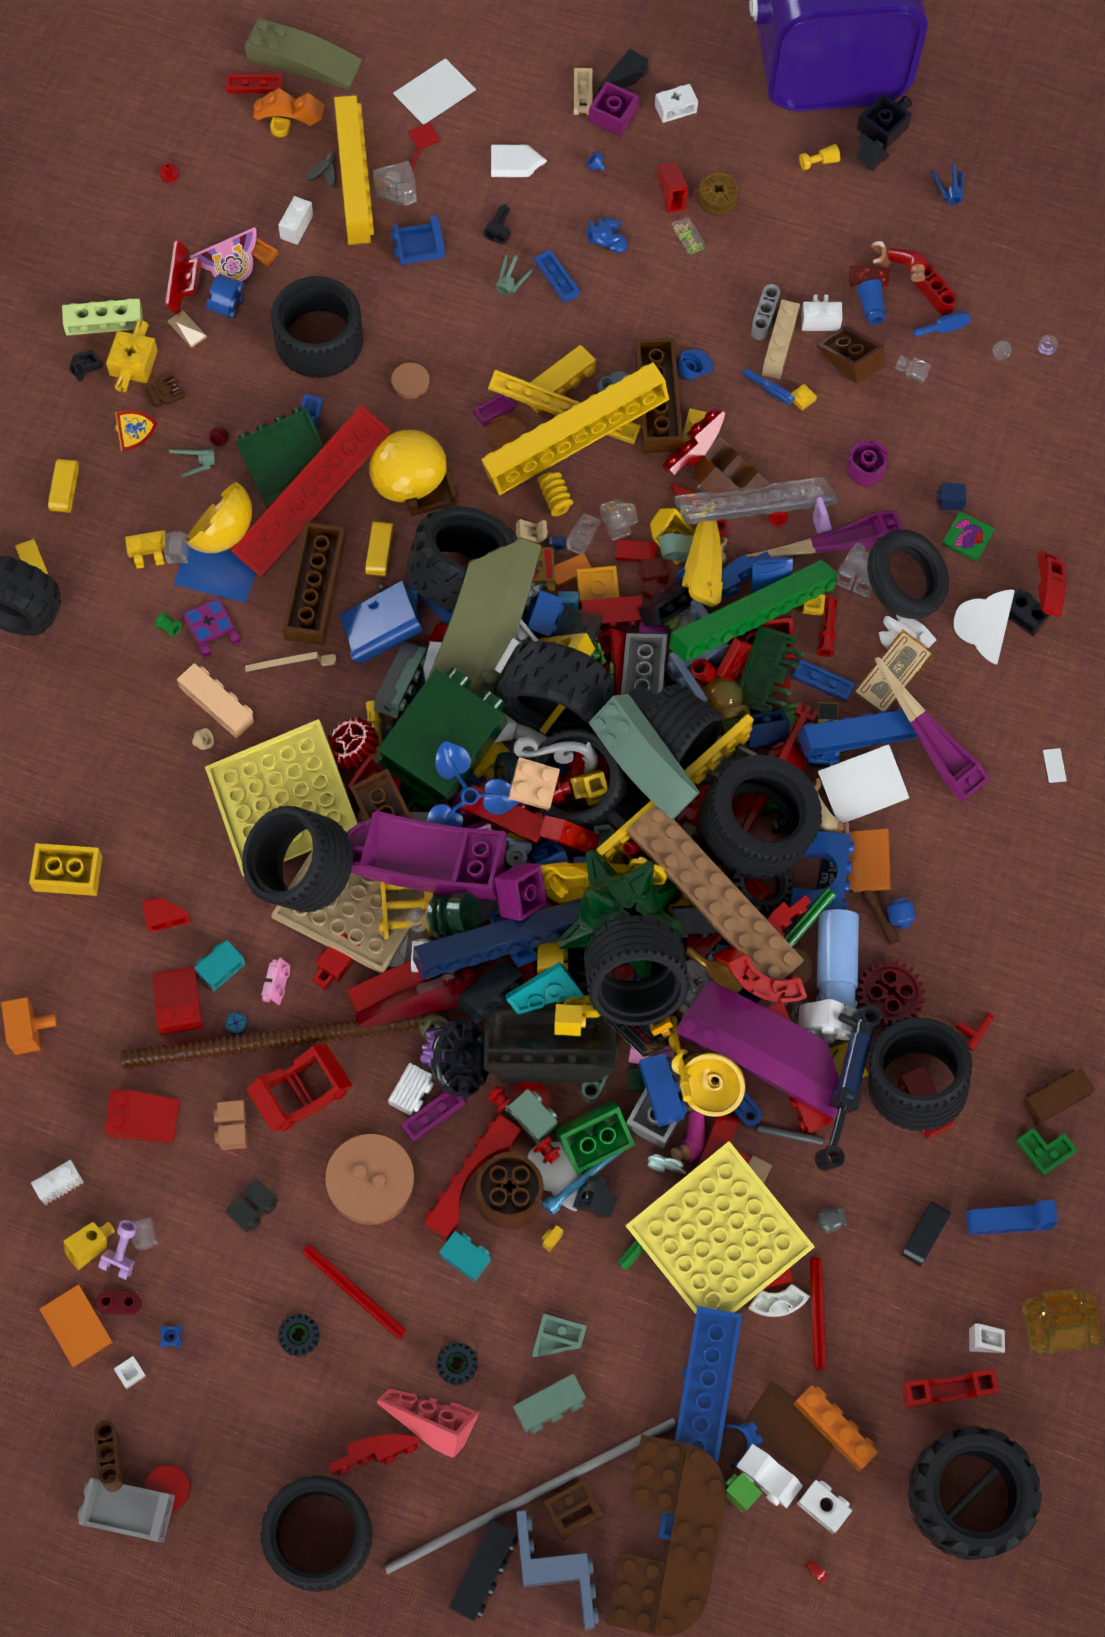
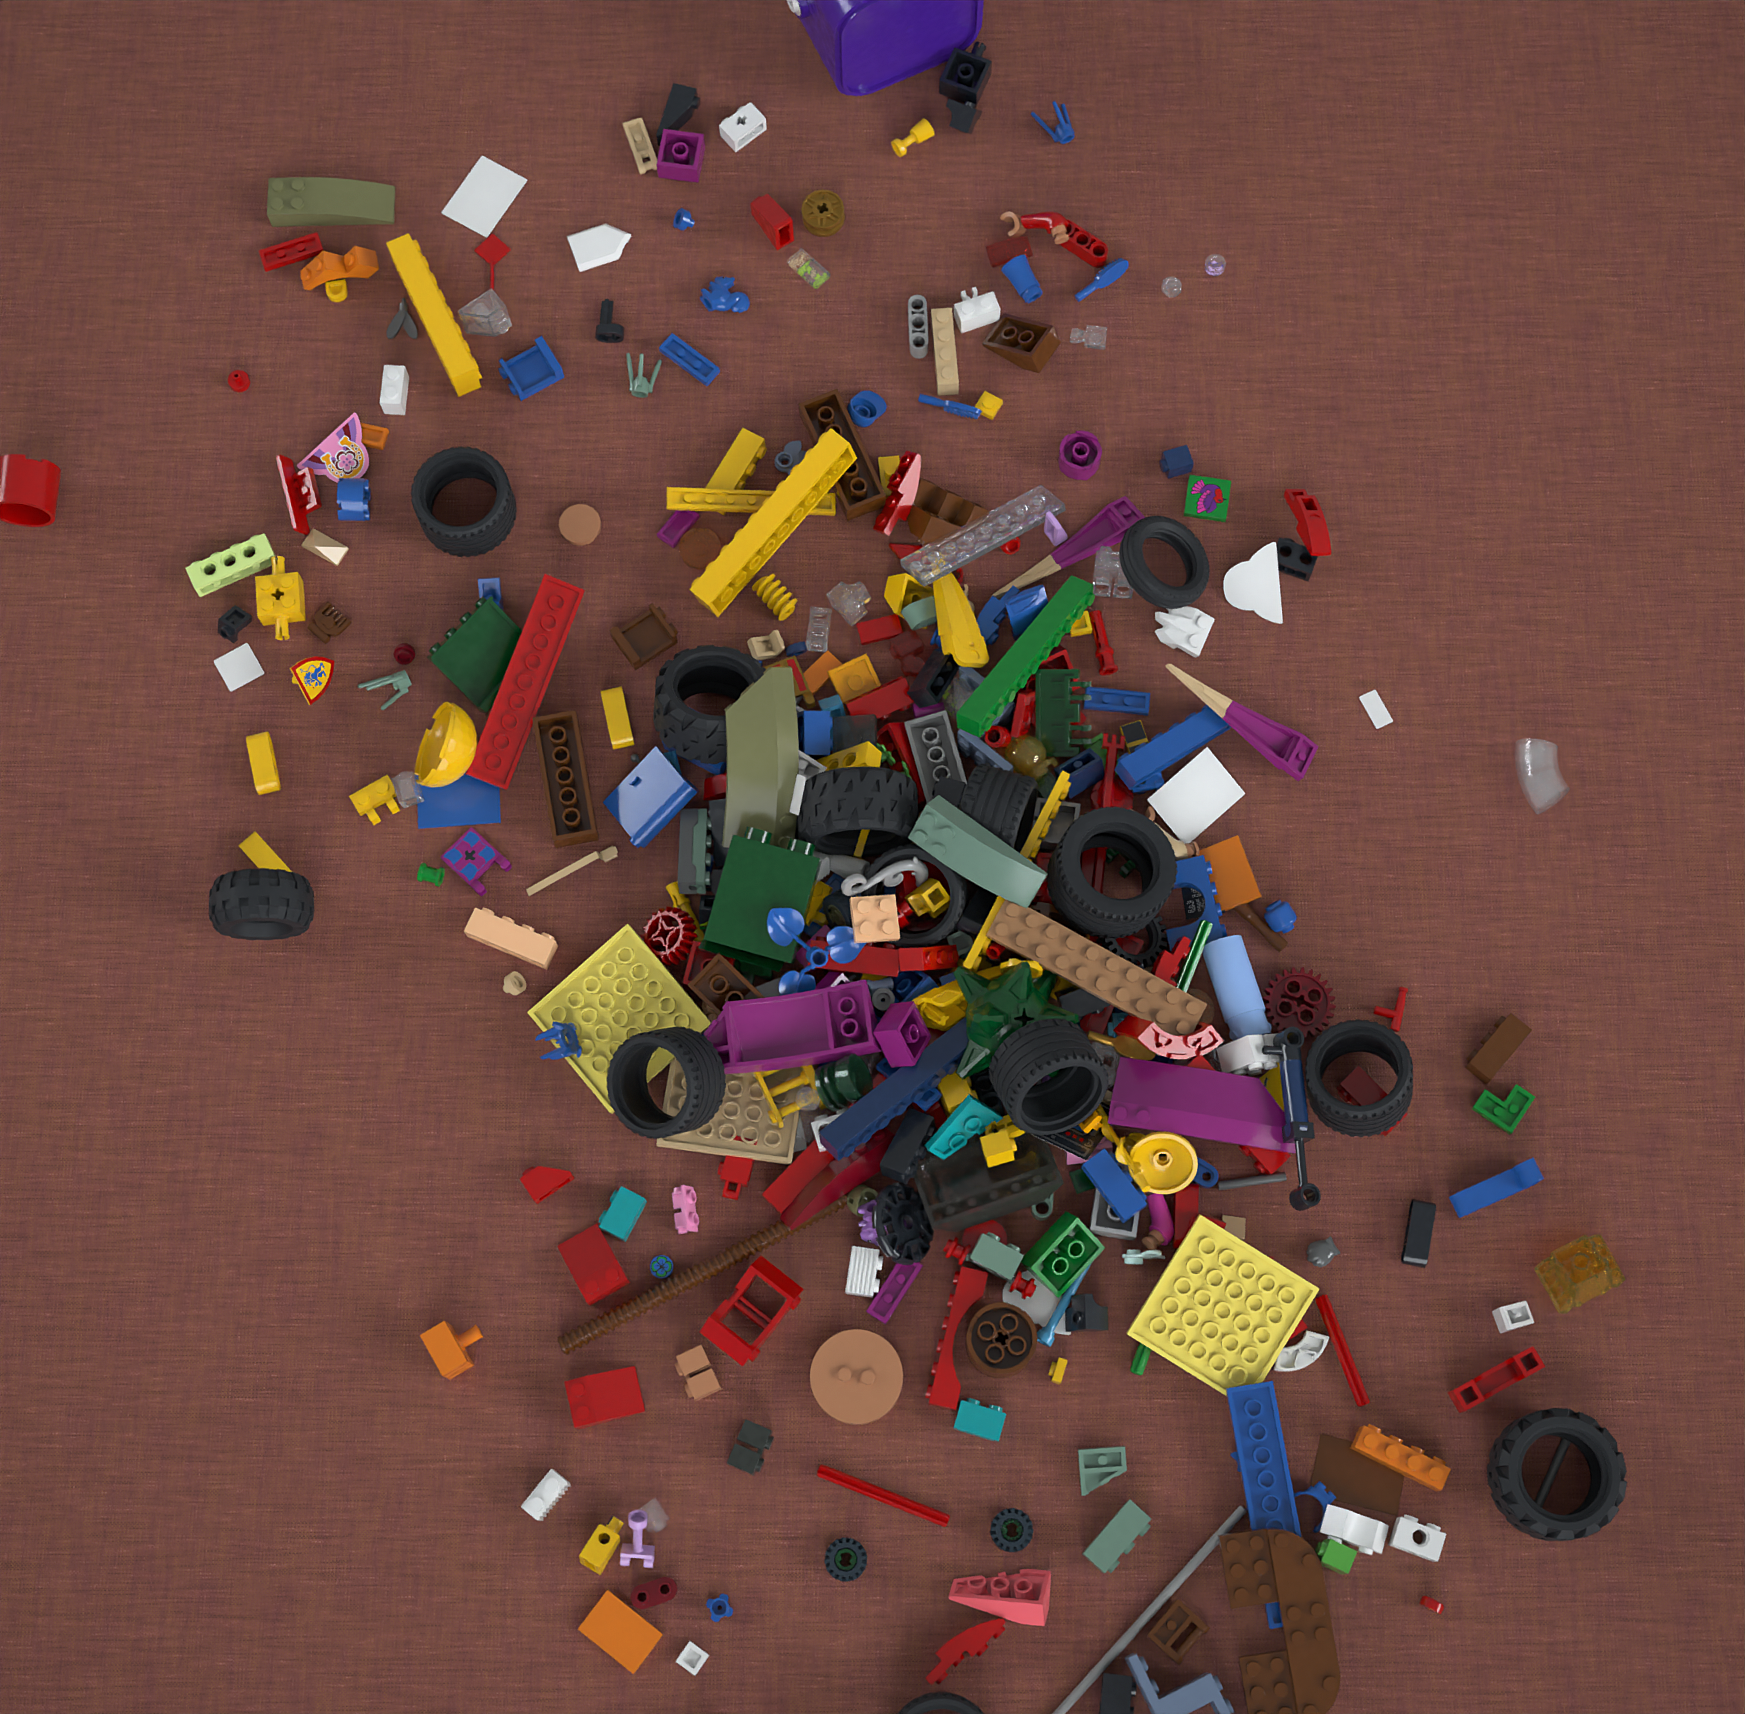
camera: 15 degrees left, 5 degrees up
(66, 869) = (428, 1171): yellow brick -> none
(75, 402) = (239, 667): none -> white sticker
(223, 807) = (558, 1033): none -> blue piece
(407, 465) = (614, 620): yellow piece -> none
(905, 659) = (1192, 653): tile -> none

